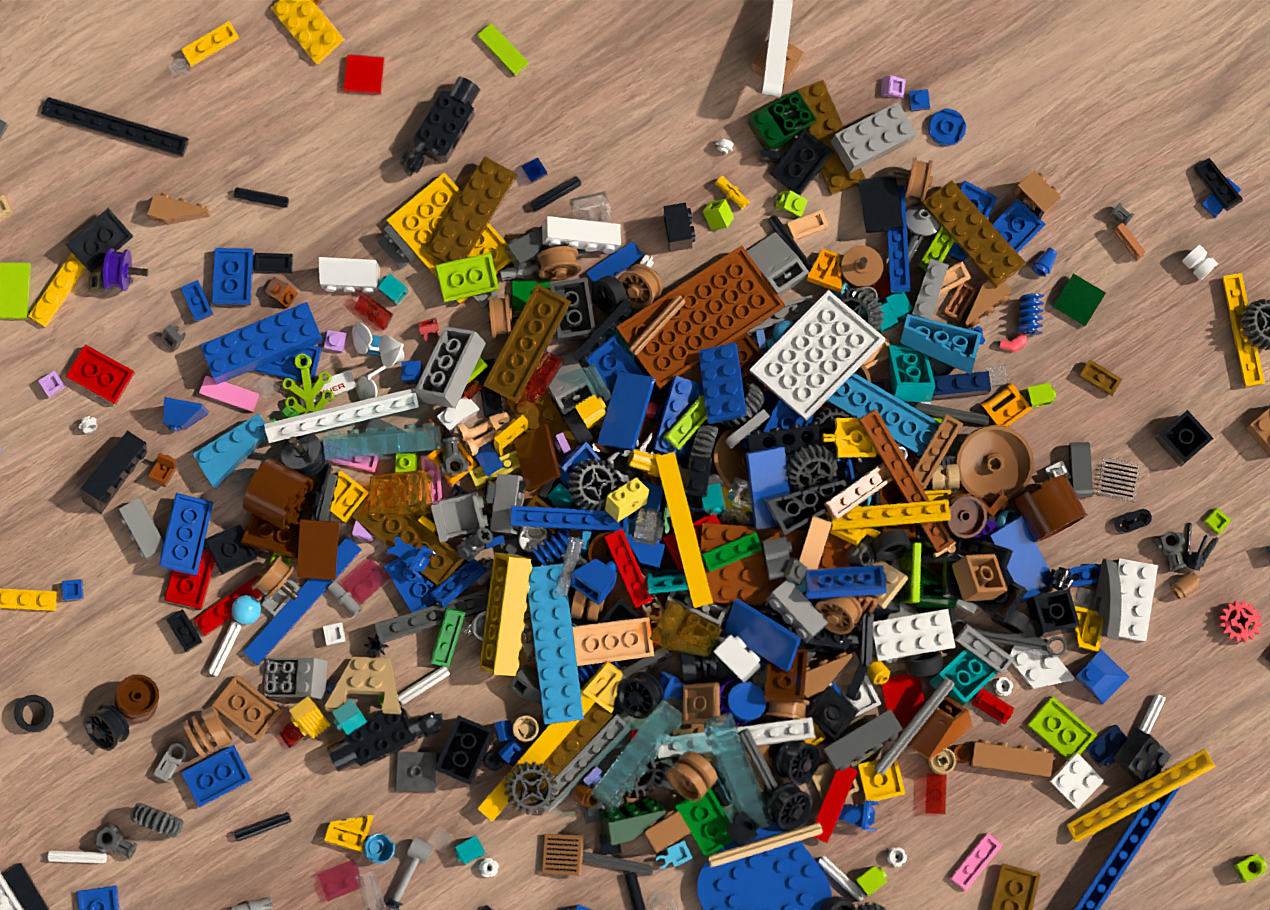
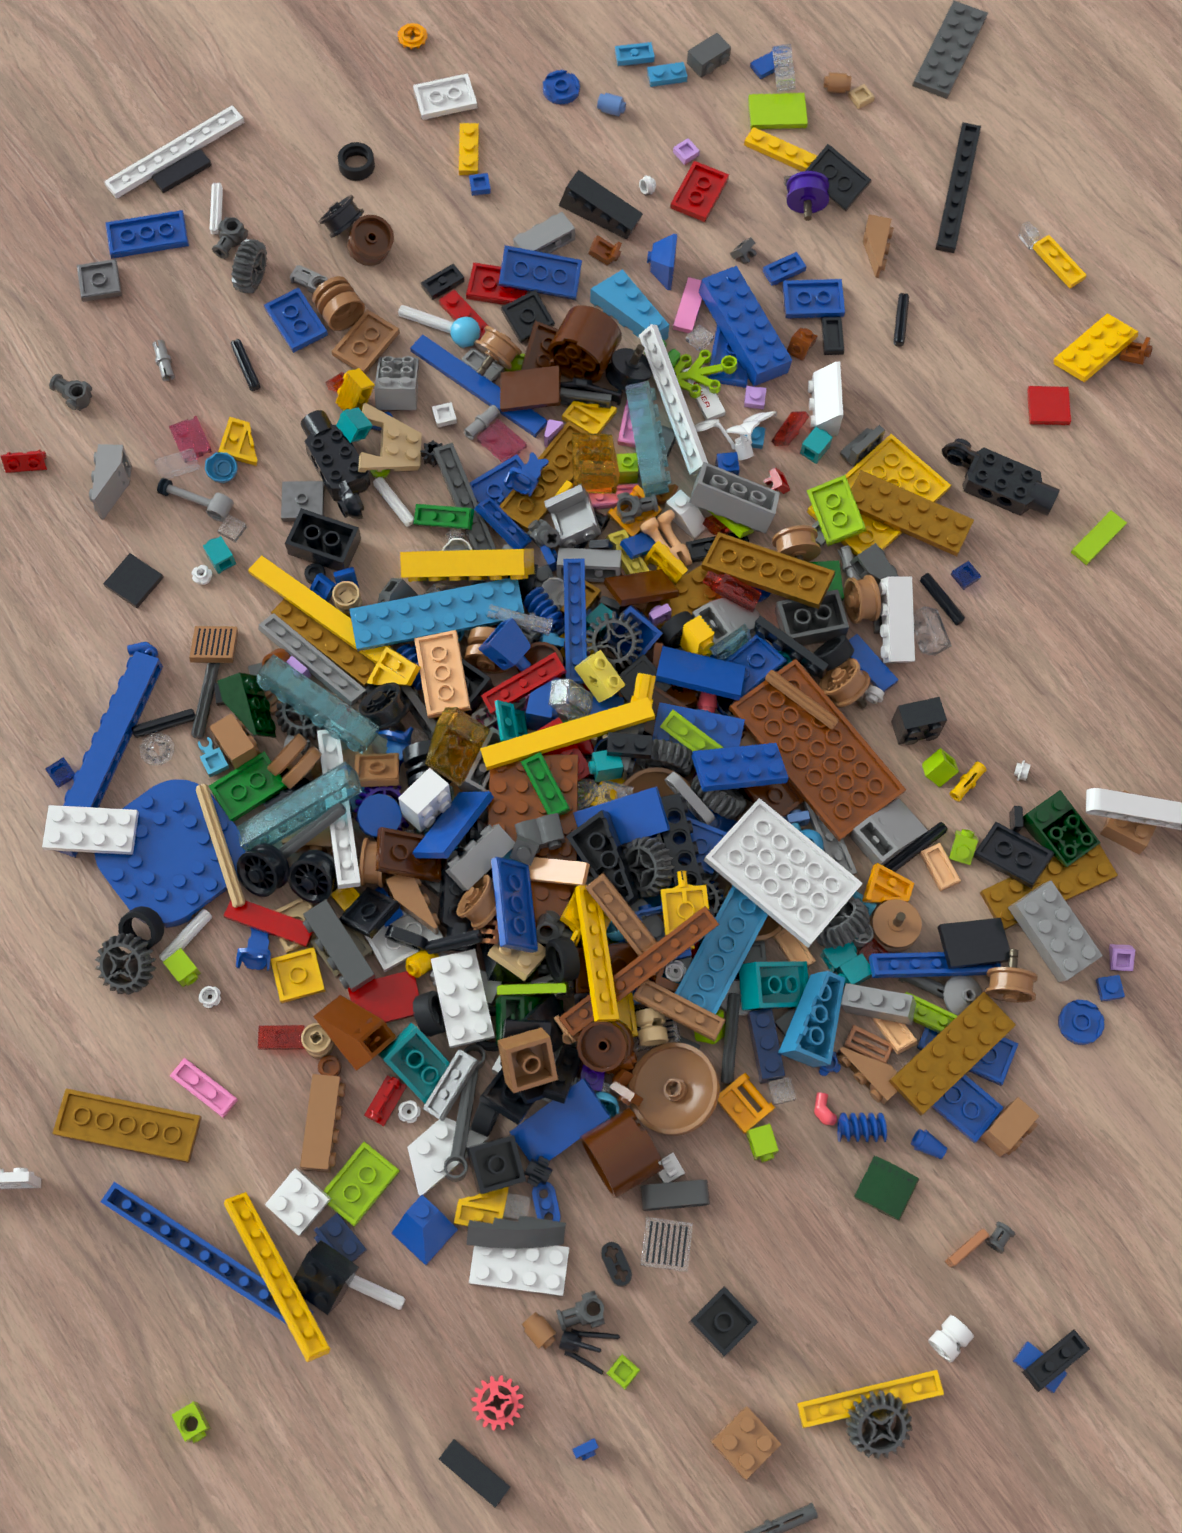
camera: 80 degrees right, 10 degrees down
(524, 794) = (293, 586): dark grey gear -> none
(743, 829) = (244, 821): black brick -> none
(914, 726) = (356, 1003): light grey axle -> none
(1100, 377) = (791, 1217): pearl gold plate -> none

